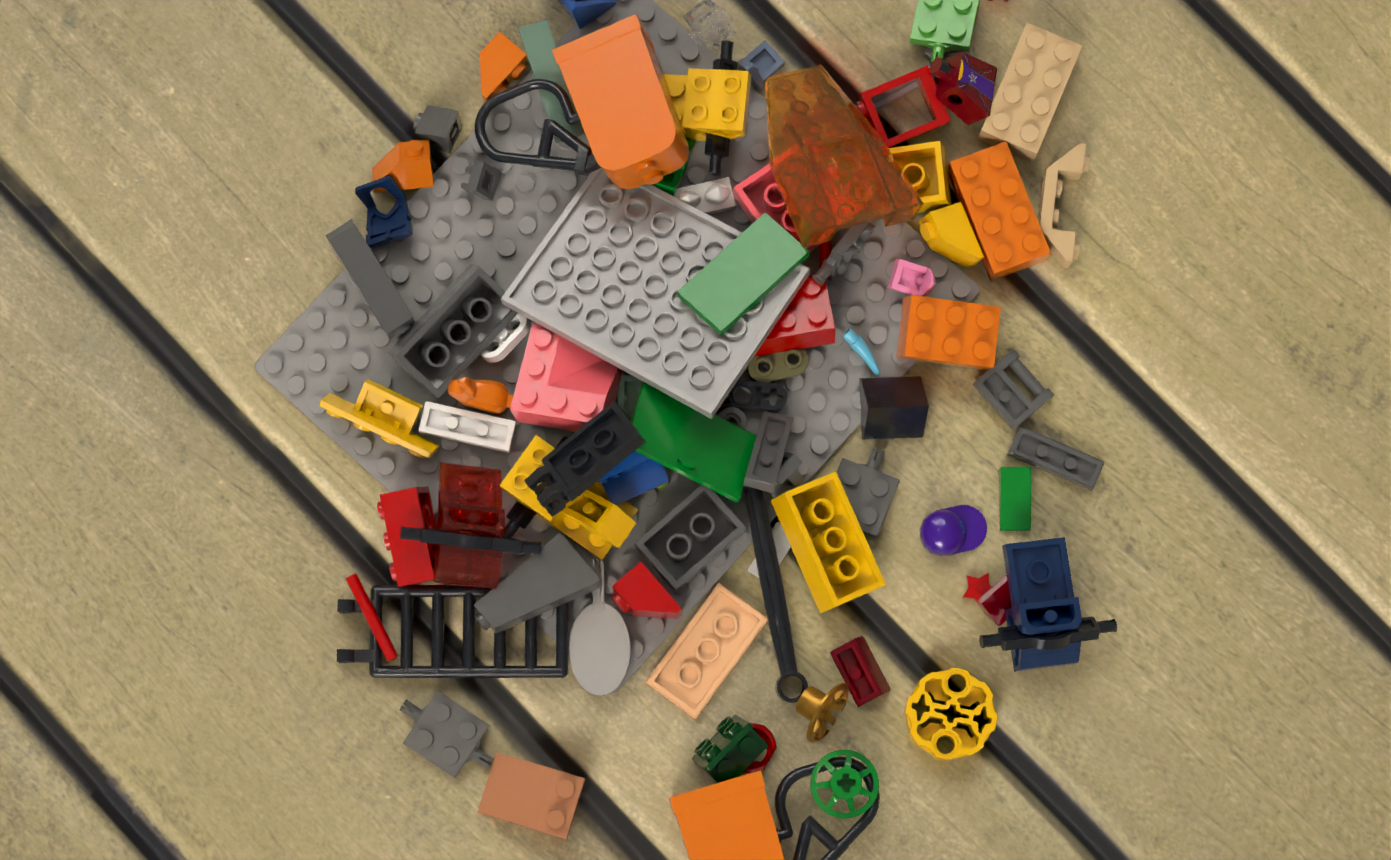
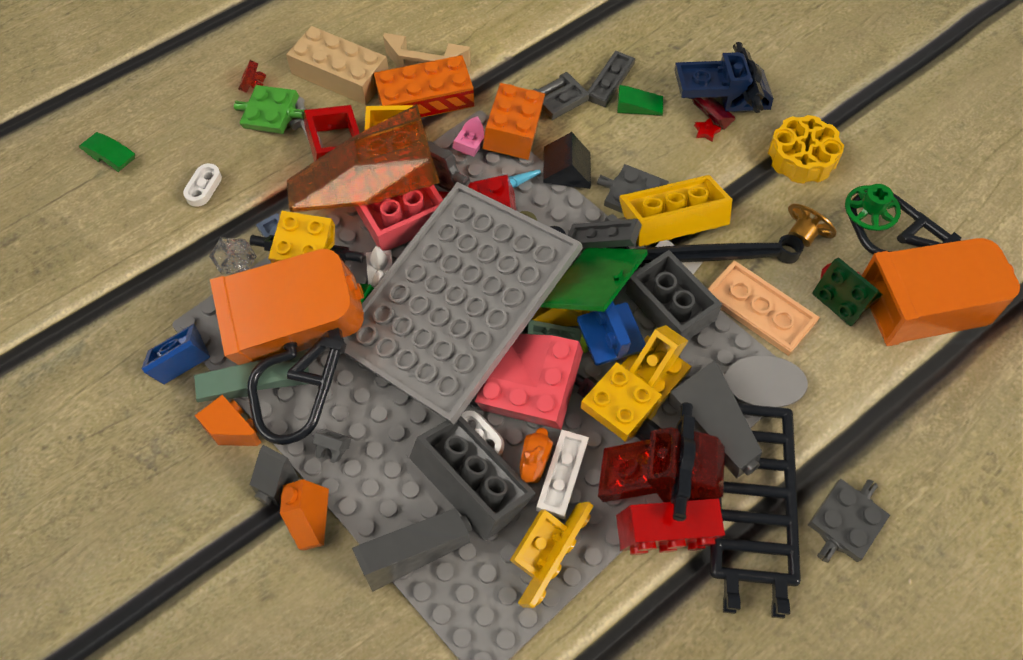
camera: 80 degrees left, 20 degrees down
(372, 617) = (745, 575): red bar -> none
(380, 226) = (358, 526): dark blue piece -> none
(531, 795) = (901, 446): nougat slope -> none
(584, 458) = (613, 344): black tile -> none
(644, 595) = (722, 332): red slope -> none
(743, 273) = (456, 226): tile -> none
(860, 671) = (771, 206): dark red slope -> none
(951, 235) = (440, 115): yellow slope -> none
(953, 530) = (662, 142): dark purple cap -> none
(965, 86) = (319, 93): dark red torso -> none

